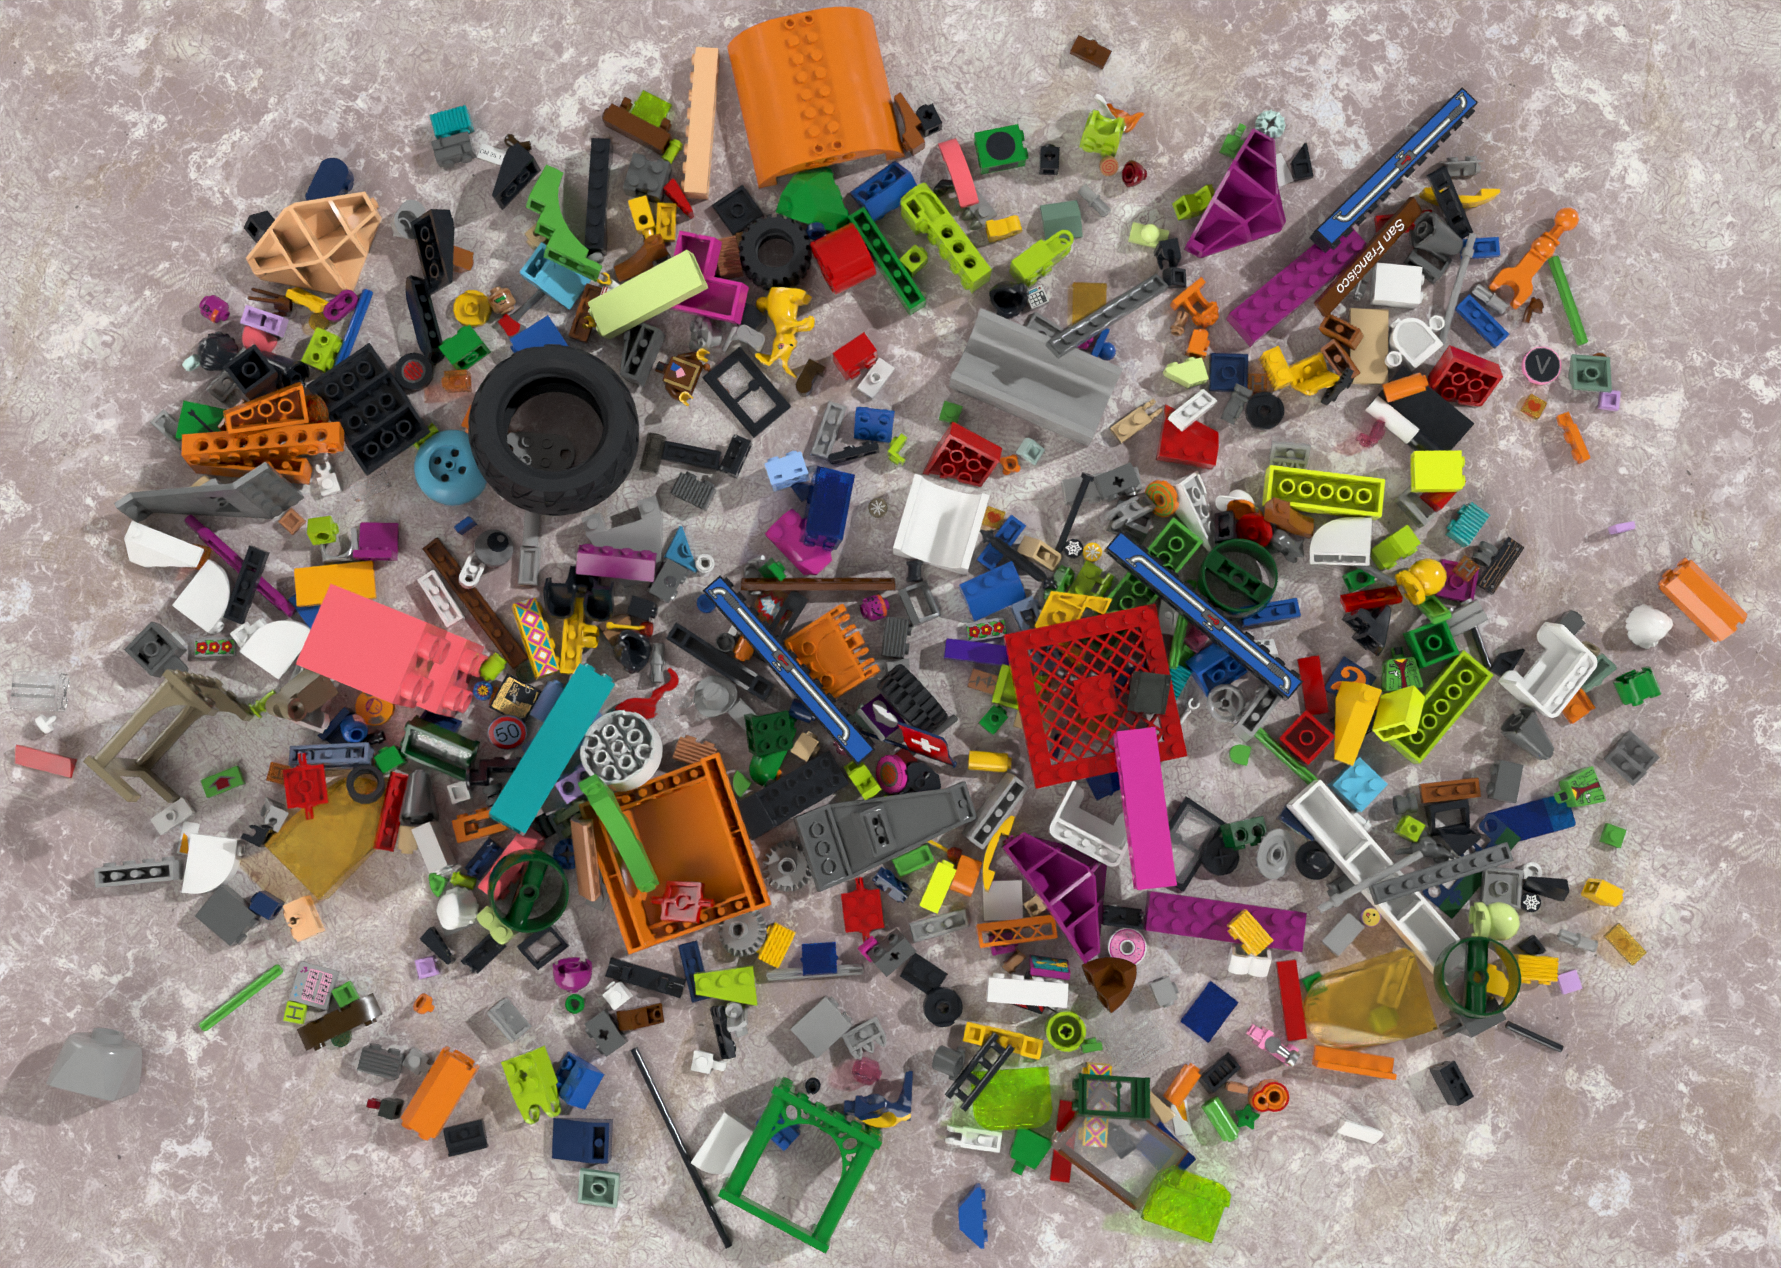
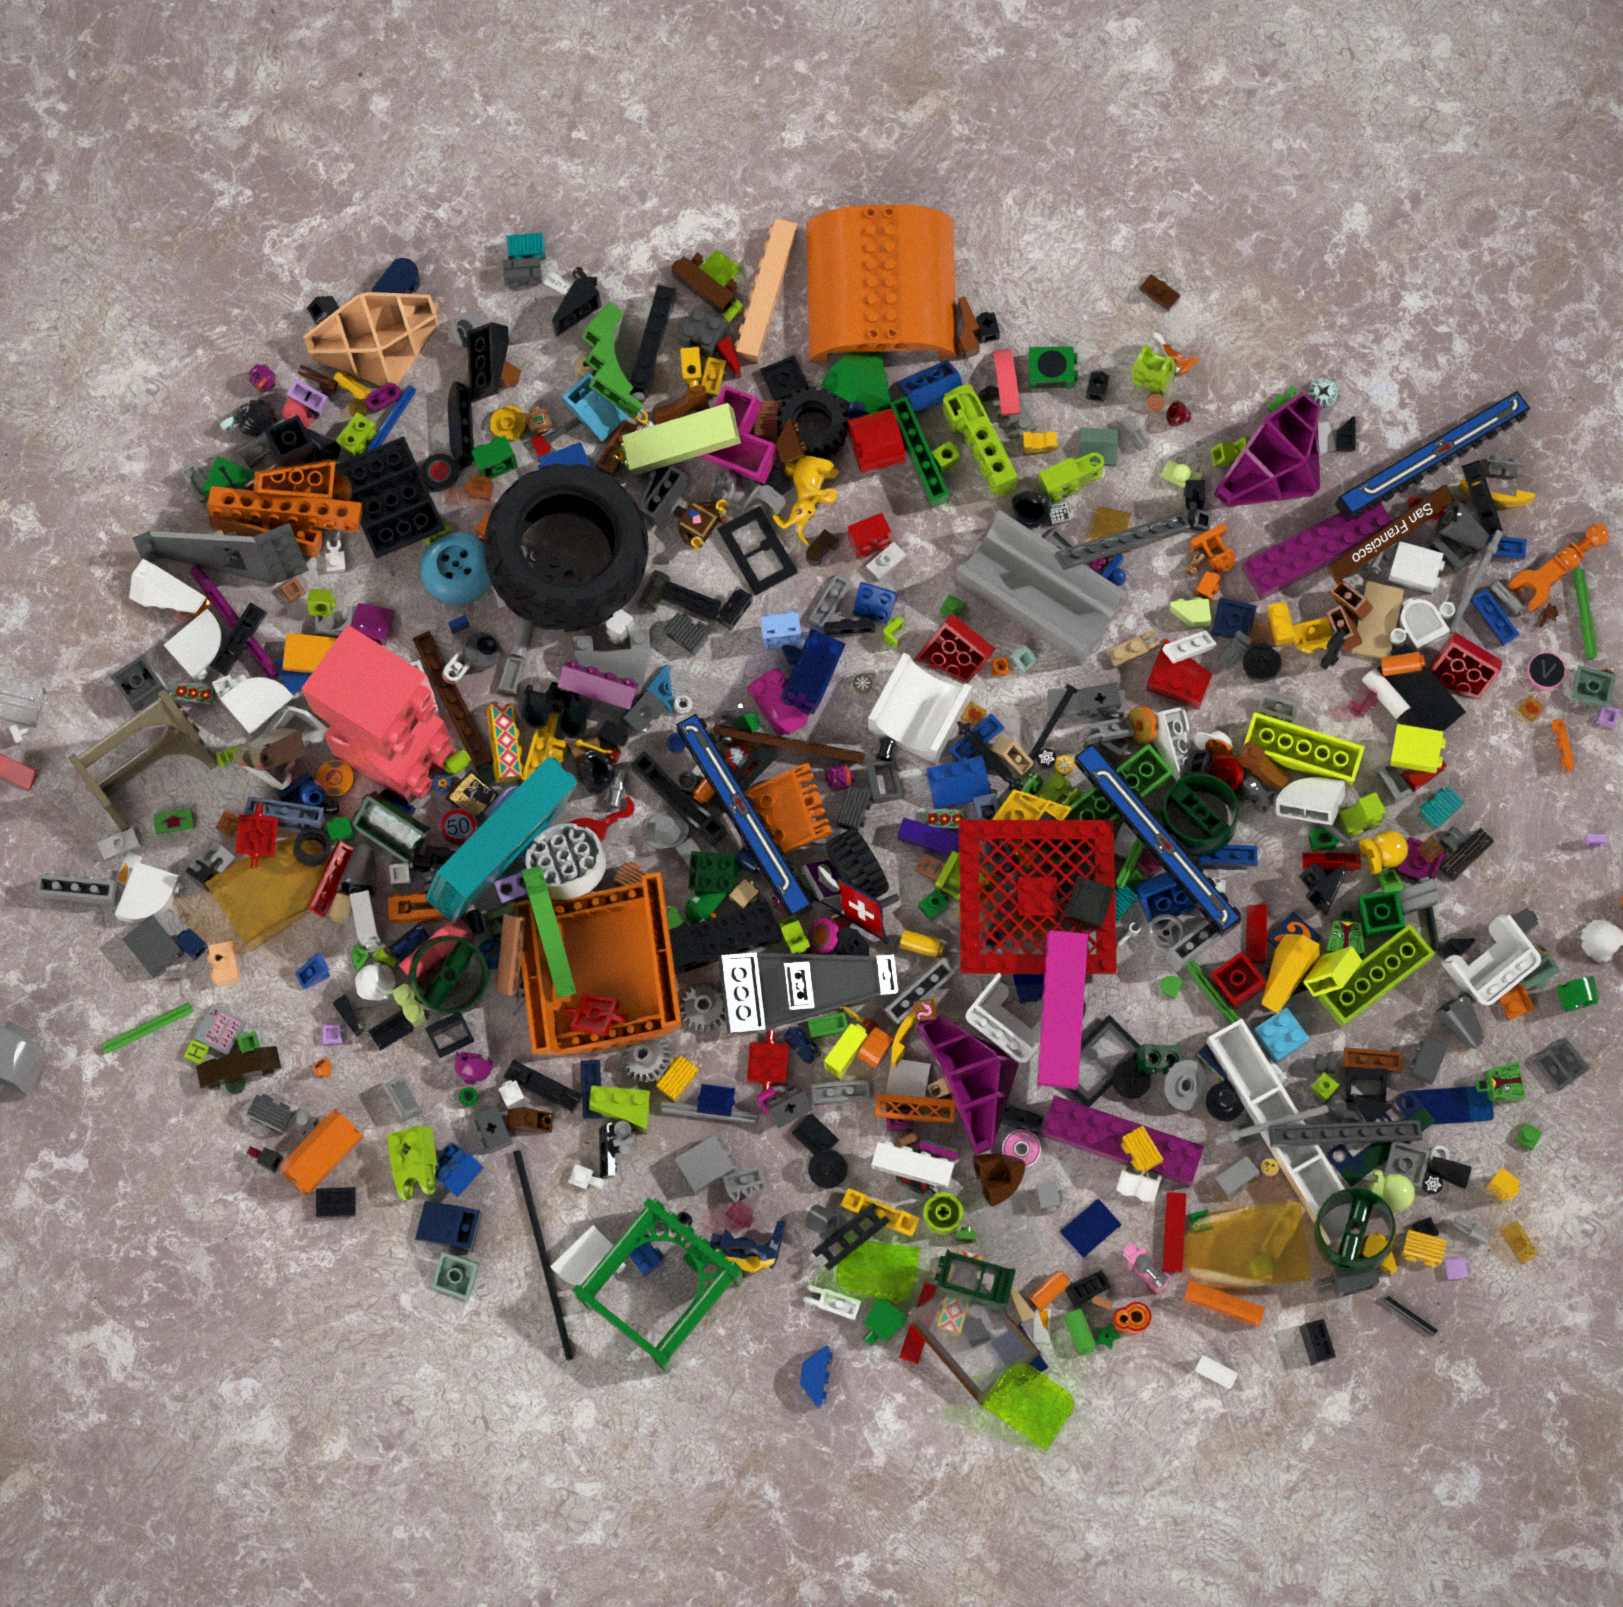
camera: 15 degrees right, 10 degrees down
(394, 909) = (313, 971): none -> blue slope
(626, 499) = (619, 627): none -> white brick
(757, 278) = (789, 443): none -> reddish brown slope
(1008, 831) = (925, 1009): none -> dark orange tile

